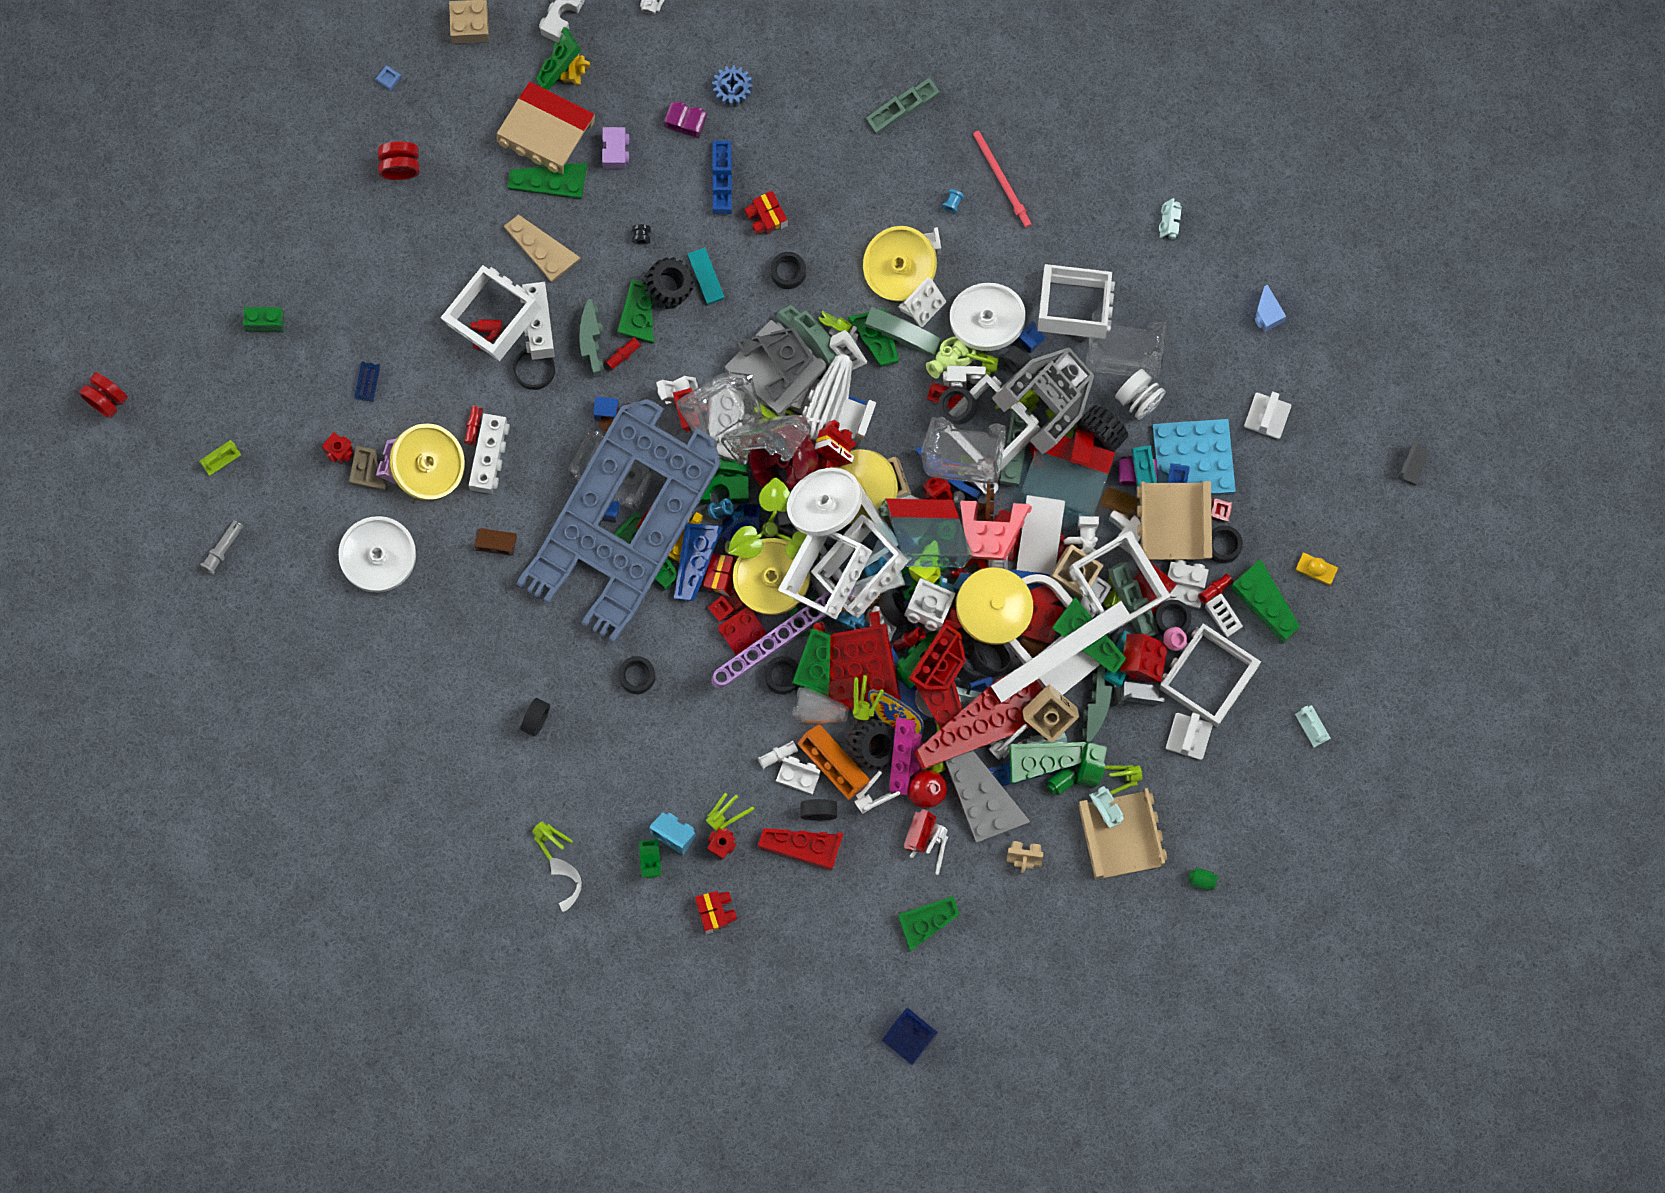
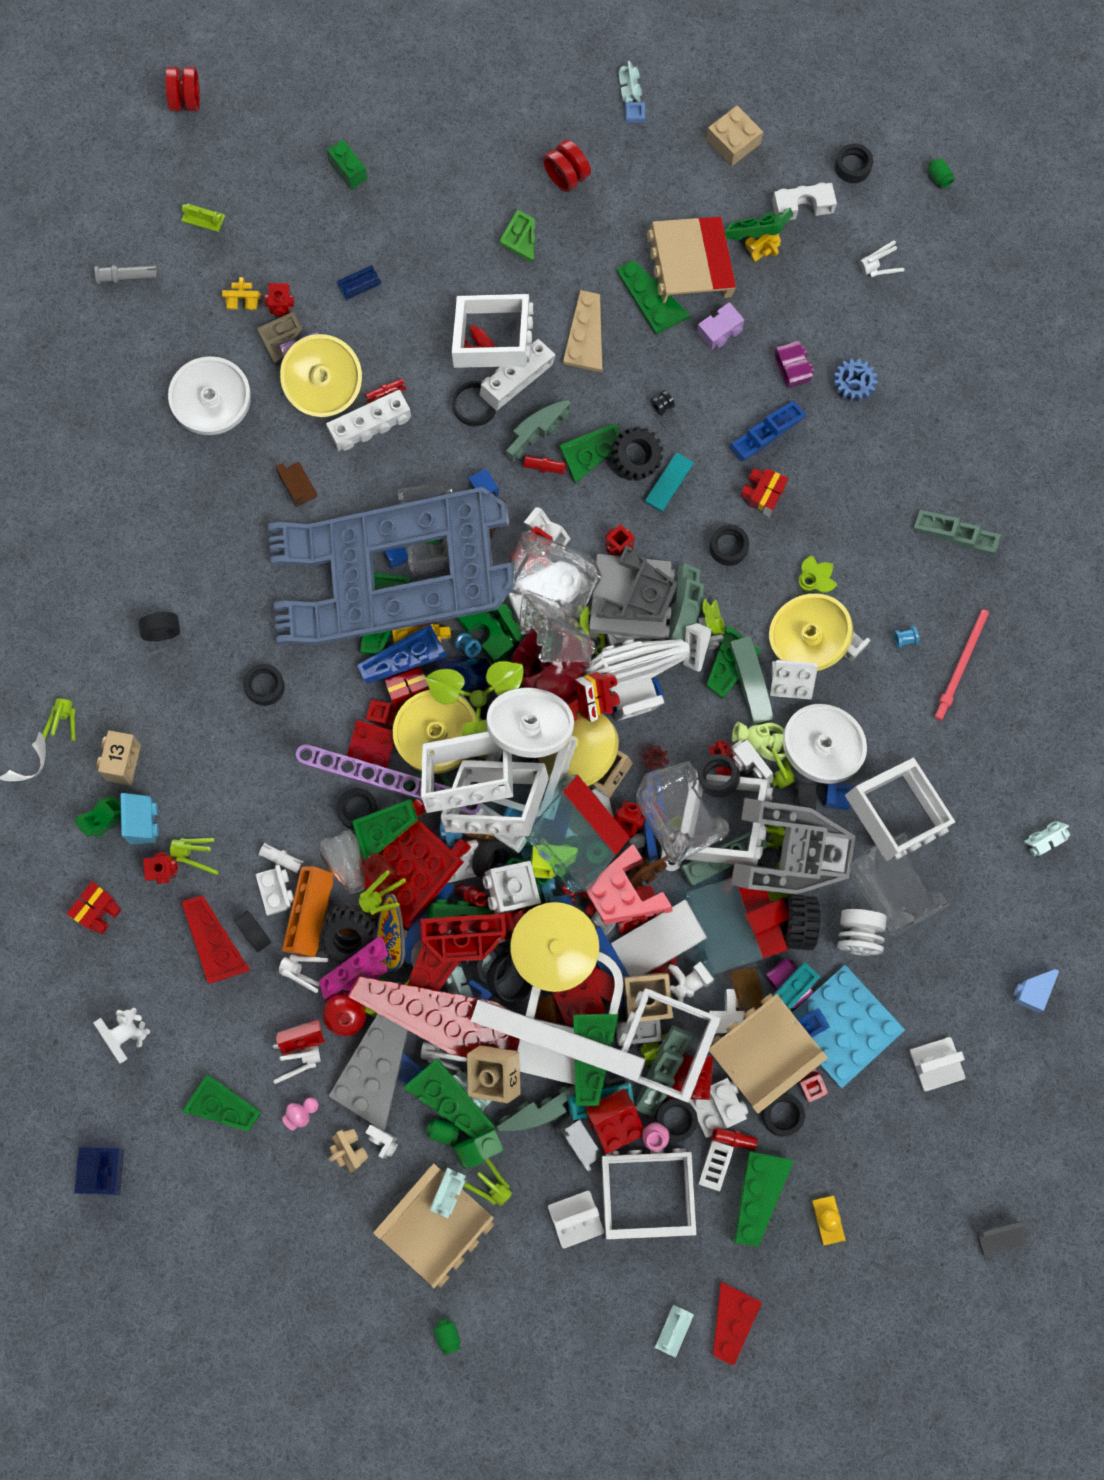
camera: 50 degrees right, 0 degrees up
(318, 469) = (251, 297): none -> yellow hips
(369, 67) = (629, 76): none -> light aqua hinge
(424, 236) = (520, 236): none -> bright green wing
(616, 814) = (118, 757): none -> tan brick
(723, 339) = (616, 536): none -> red brick
(823, 948) = (124, 1031): none -> white piece
(858, 225) = (818, 574): none -> lime plate
(910, 445) = (656, 752): none -> clear red gear
(974, 872) = (298, 1115): none -> bright pink animal
(1035, 823) = (379, 1137): none -> white bracket
(1335, 681) = (734, 1320): none -> red wing

